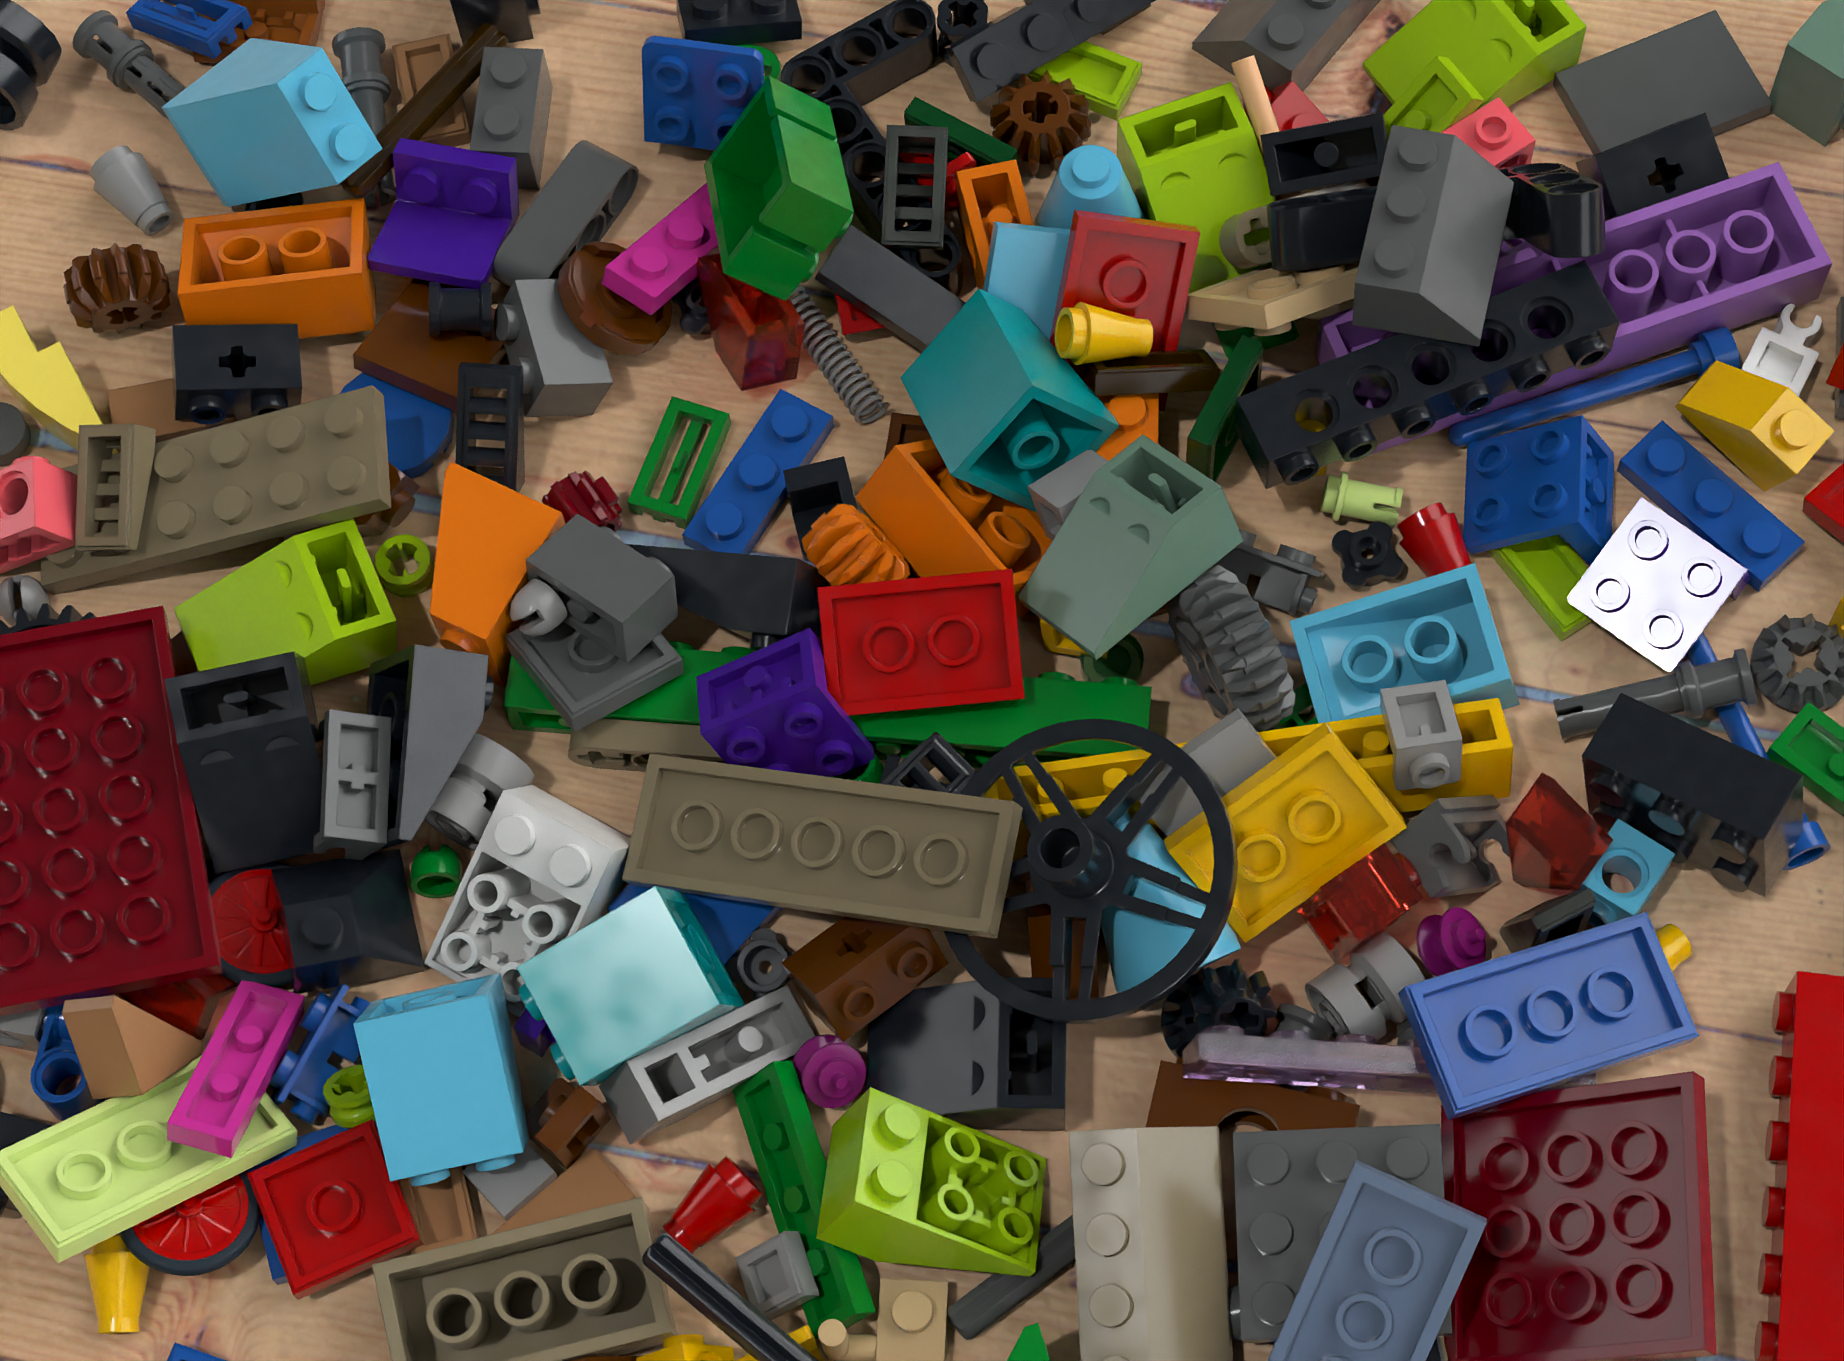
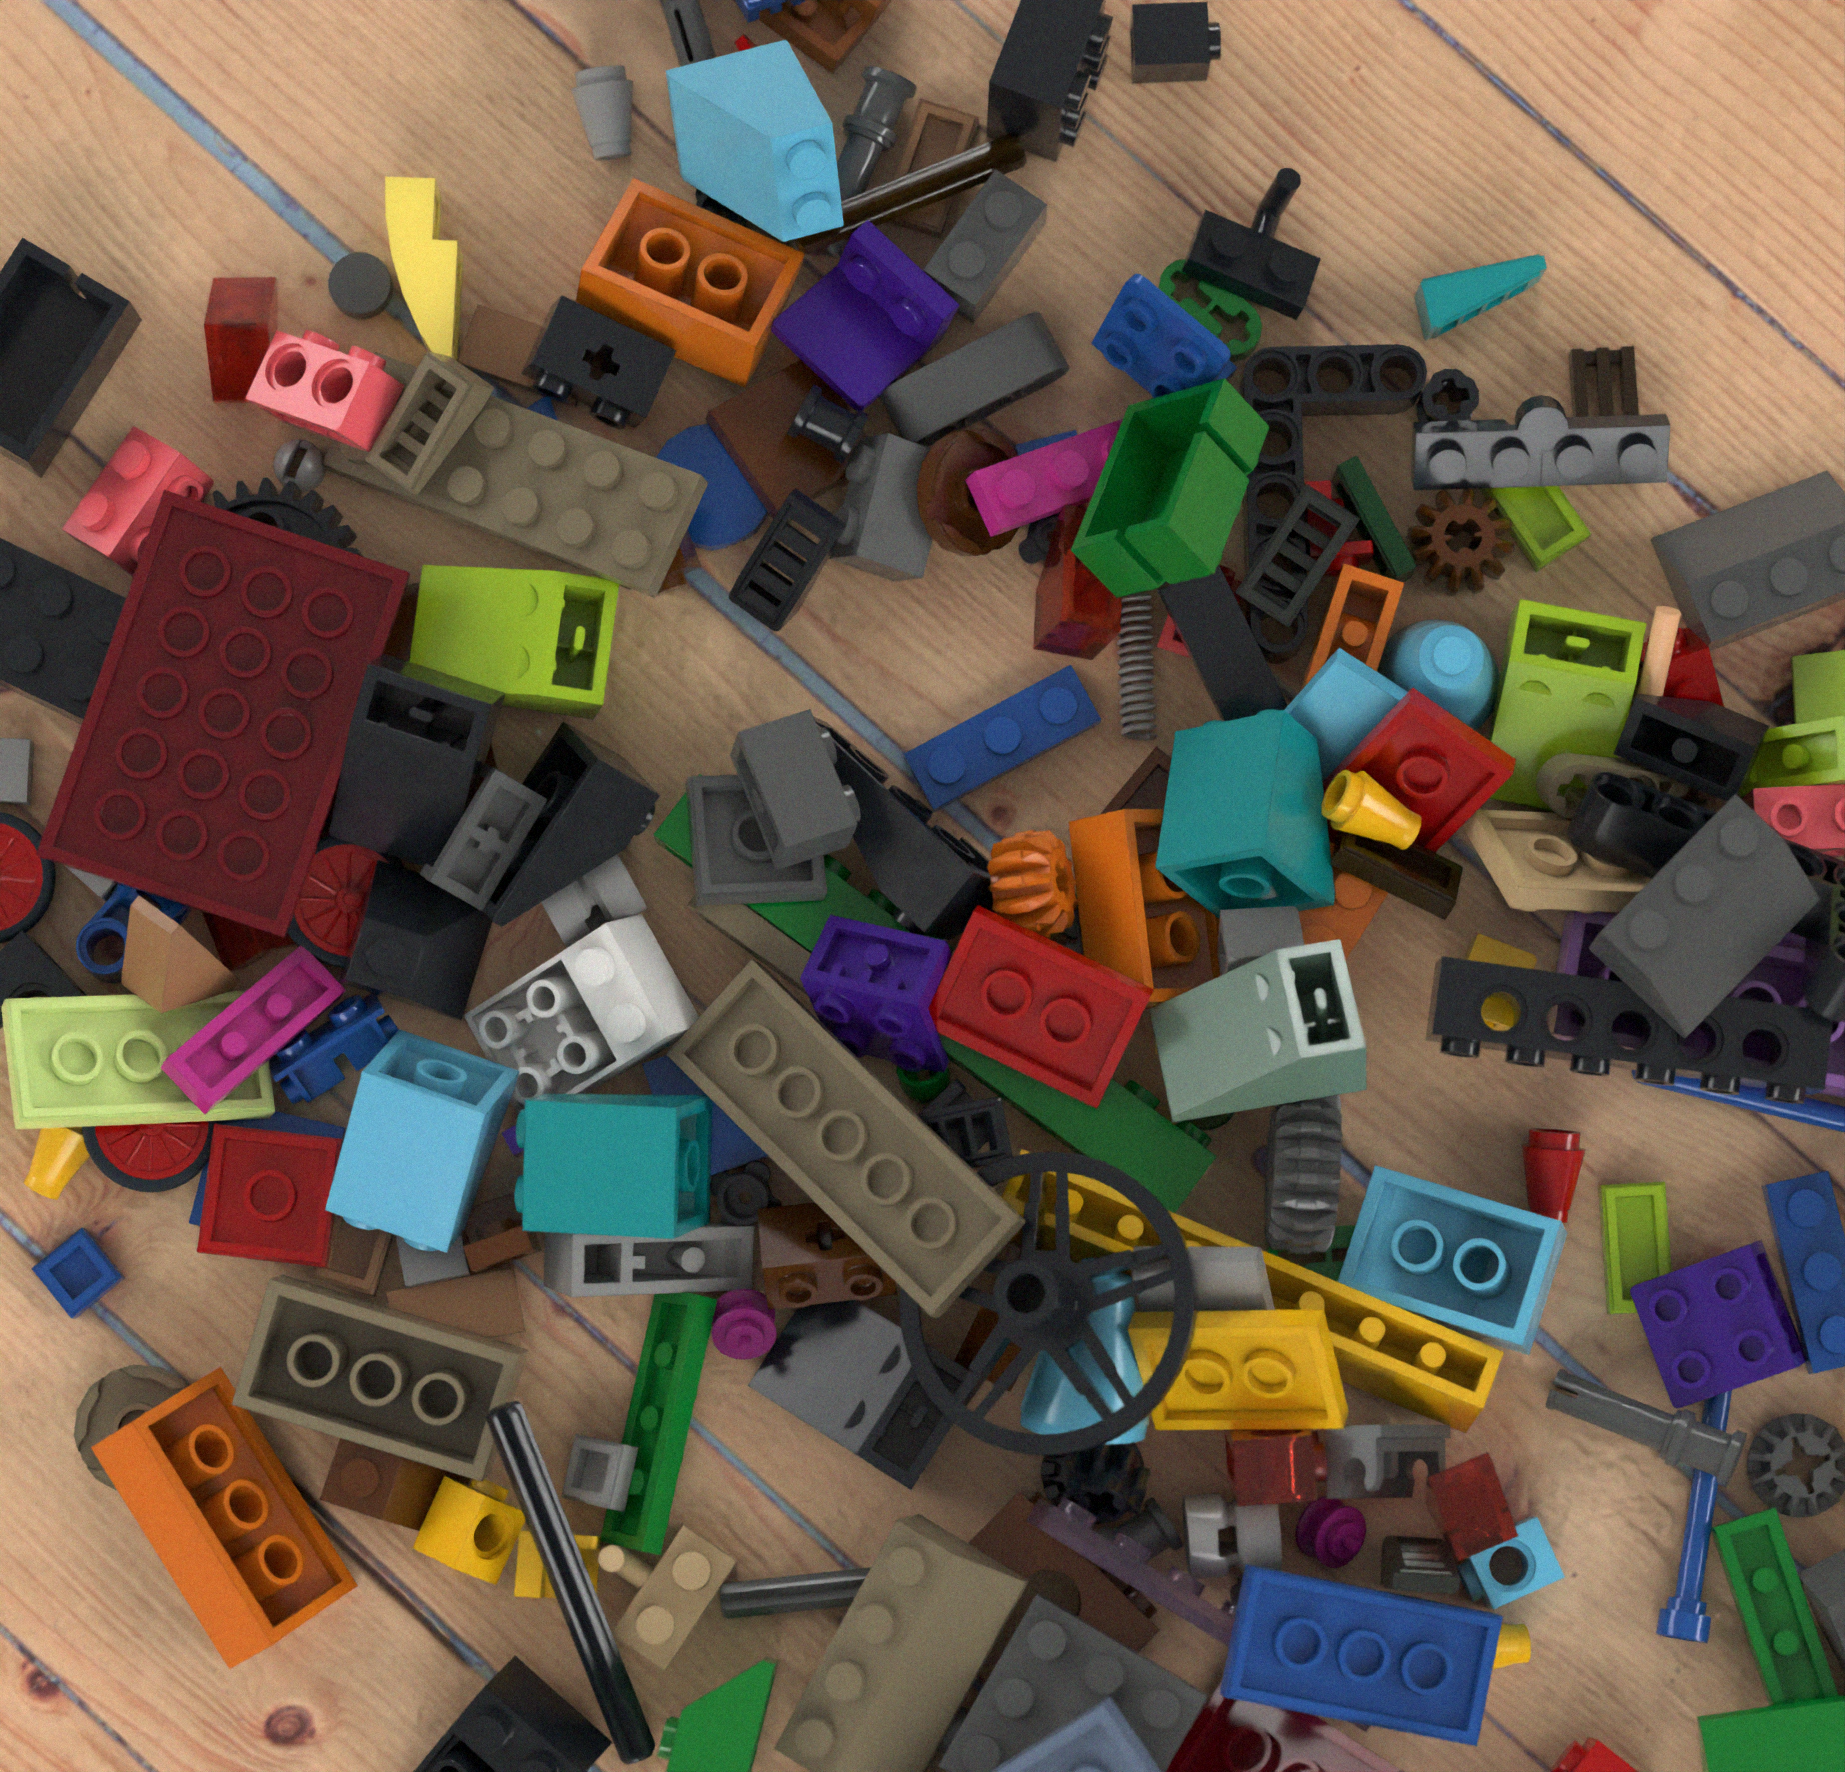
camera: 25 degrees right, 15 degrees up
(116, 288) = (536, 213): reddish brown gear -> none
(349, 1097) = (325, 1113): lime bush -> none
(405, 546) = (666, 638): lime bush -> none
(436, 872) = (517, 943): green hinge -> none
(482, 563) = (705, 699): orange slope -> none
(538, 607) = (725, 776): light grey hinge -> none
(585, 497) = (827, 682): dark red gear -> none
(663, 507) = (901, 714): green tile -> none
(713, 1205) = (582, 1380): red cone -> none
(817, 490) = (1040, 800): black panel -> none
(929, 1191) = (764, 1483): lime slope -> none
(1214, 431) = (1436, 943): dark green tile -> none
(1282, 575) = (1402, 1107): dark grey hinge -> none
(1357, 500) = (1515, 1085): yellowish green pin -> none
(1367, 572) = (1472, 1147): black plate -> none
(1422, 735) = (1411, 1351): light grey bracket -> none
(1540, 486) = (1674, 1172): blue bracket -> none
(1694, 794) = (1608, 1541): black brick -> none

